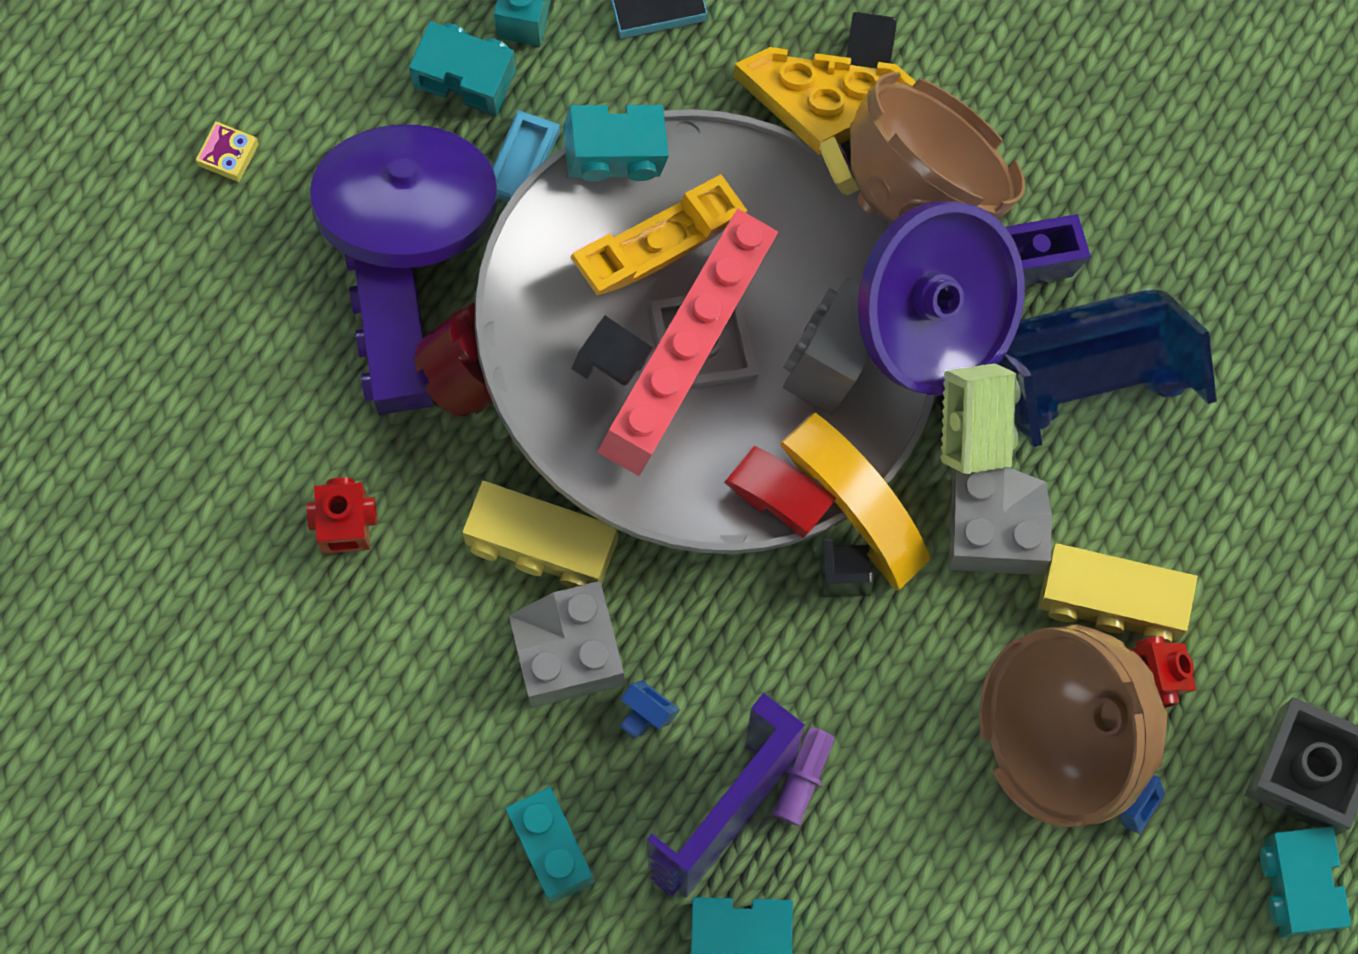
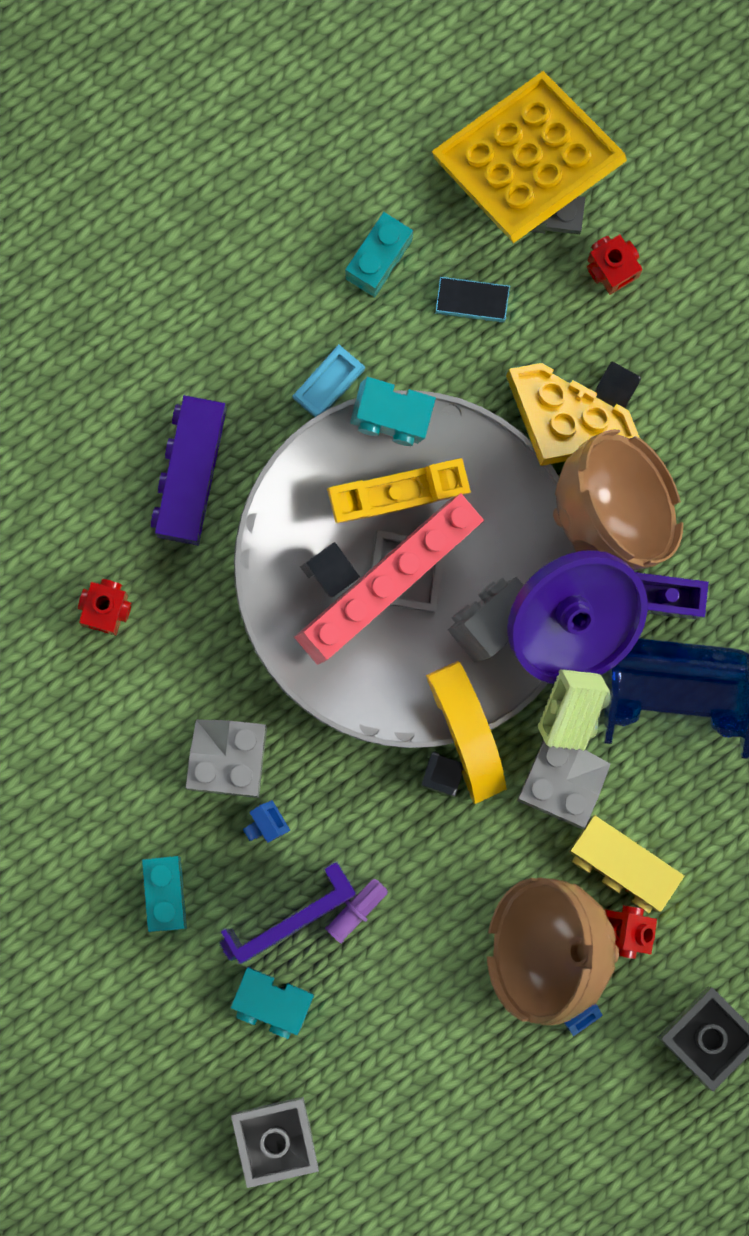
camera: 20 degrees right, 10 degrees up
(227, 151) = (117, 298): tile -> none
(403, 196) = (231, 385): dark purple dish -> none
(453, 365) = (217, 528): dark red brick -> none
(464, 65) = (317, 300): teal brick -> none
(539, 536) = (235, 673): light yellow brick -> none
(780, 488) = (414, 708): red slope -> none
(838, 166) = (549, 478): light yellow tile -> none
(1303, 882) = (669, 1112): teal brick -> none

